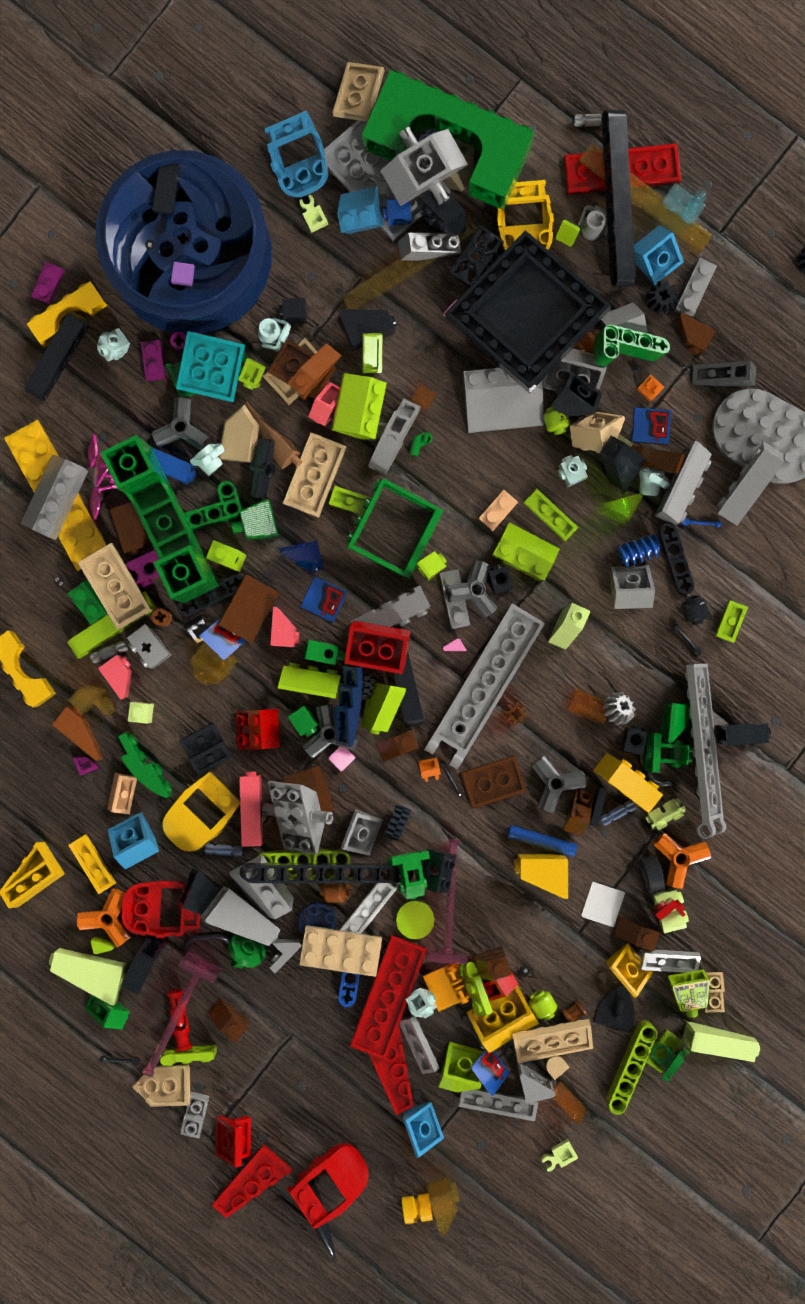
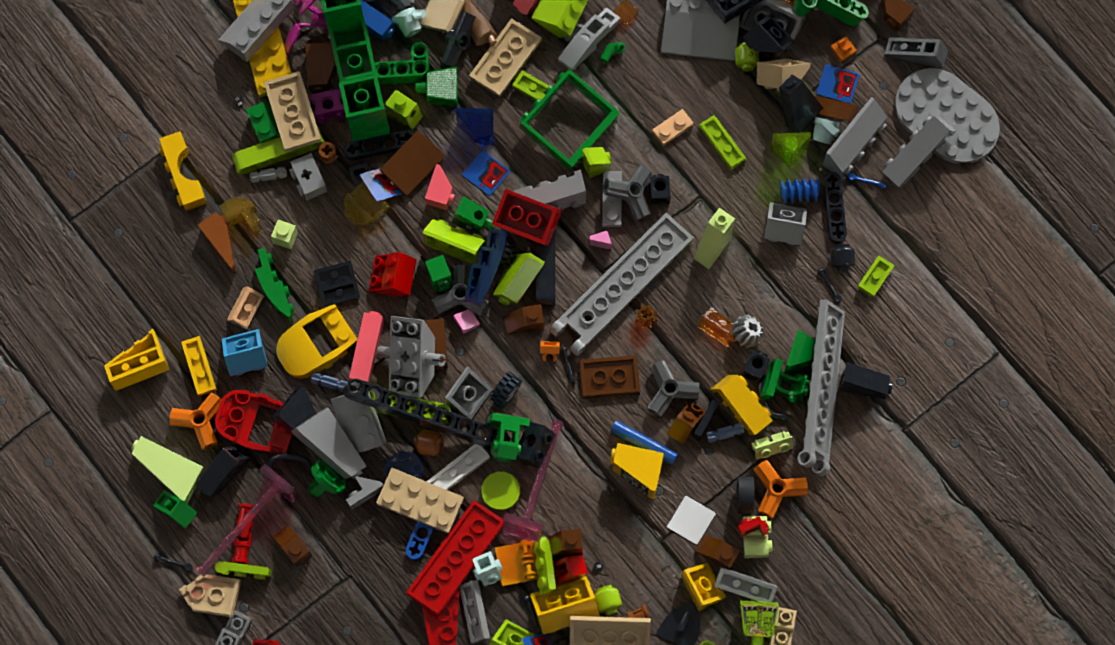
camera: 10 degrees right, 15 degrees down
(85, 764) = (216, 273): magenta tile -> none
(101, 945) = (187, 445): lime slope -> none
(118, 675) = (272, 195): coral slope -> none
(526, 552) = (689, 170): lime slope -> none
(572, 477) = (751, 104): light aqua brick -> none

